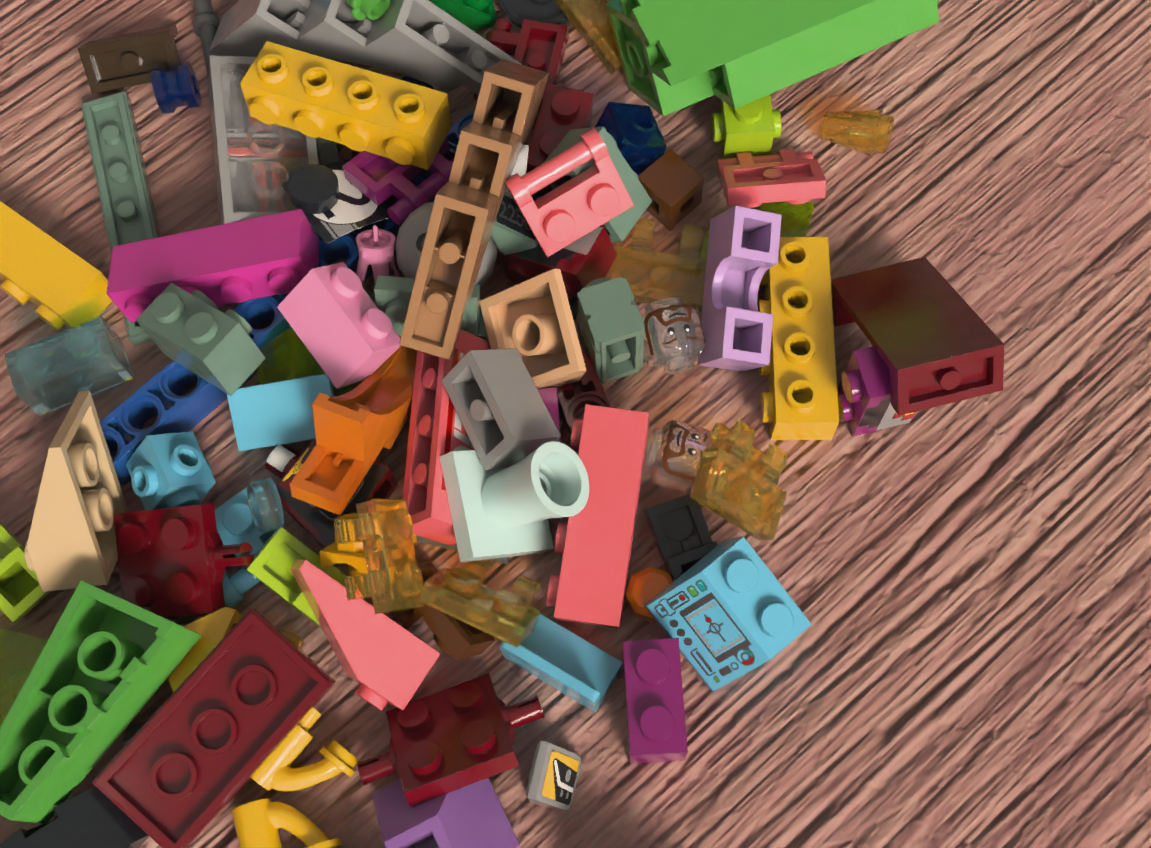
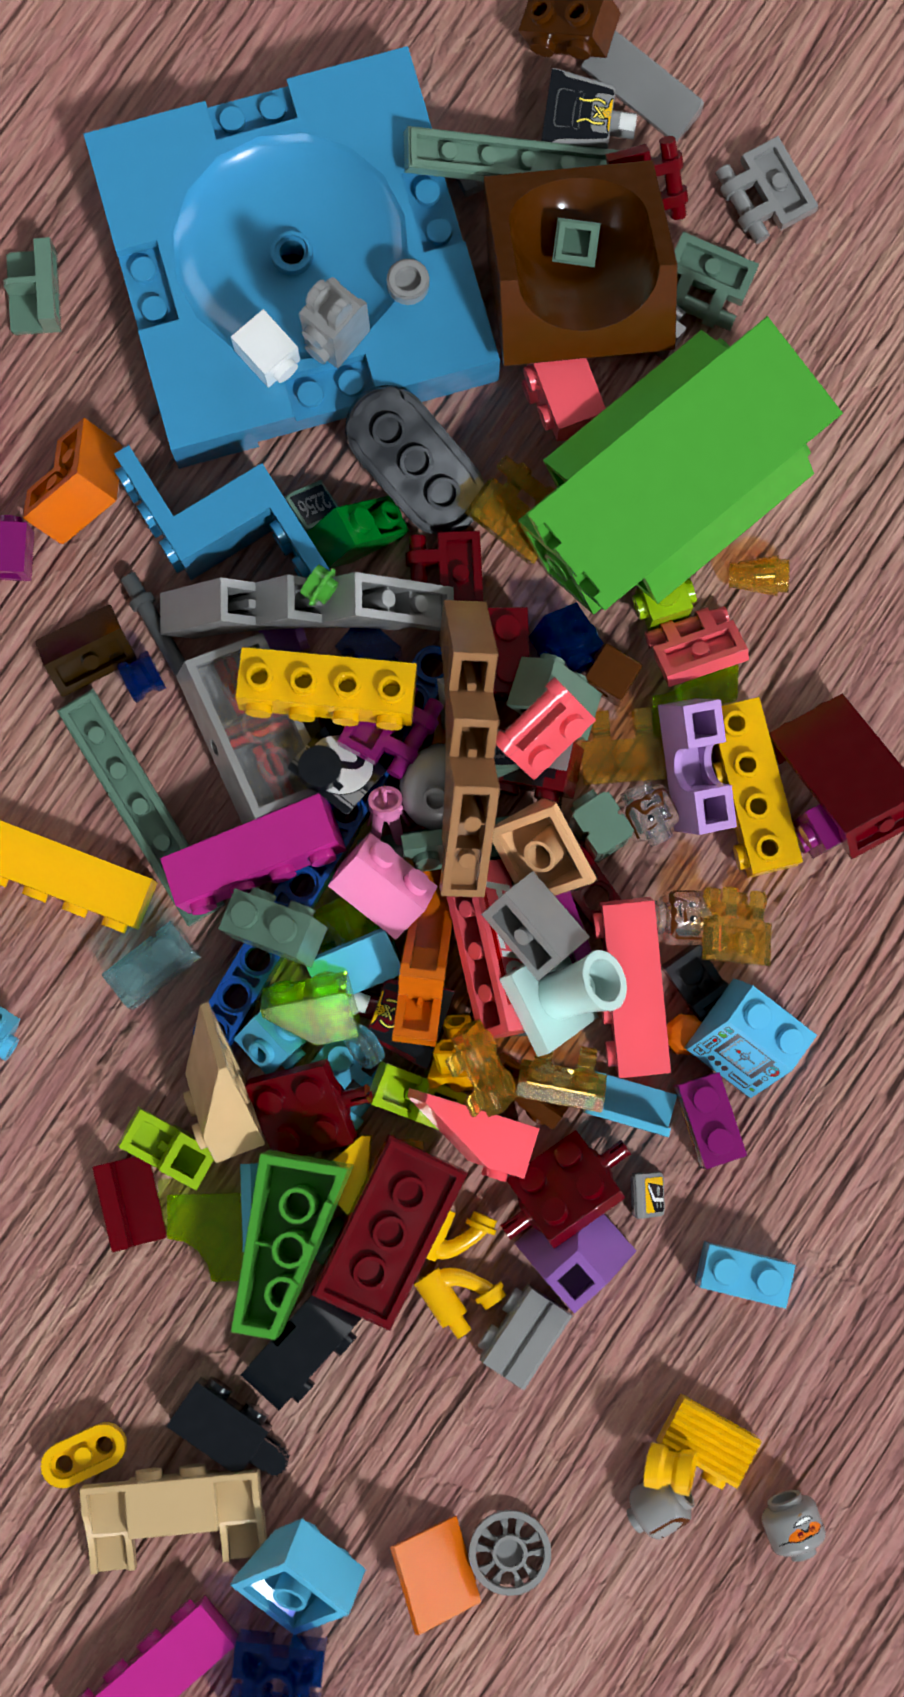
camera: 20 degrees left, 15 degrees up
(221, 444) = (314, 1008): none -> clear neon green slope

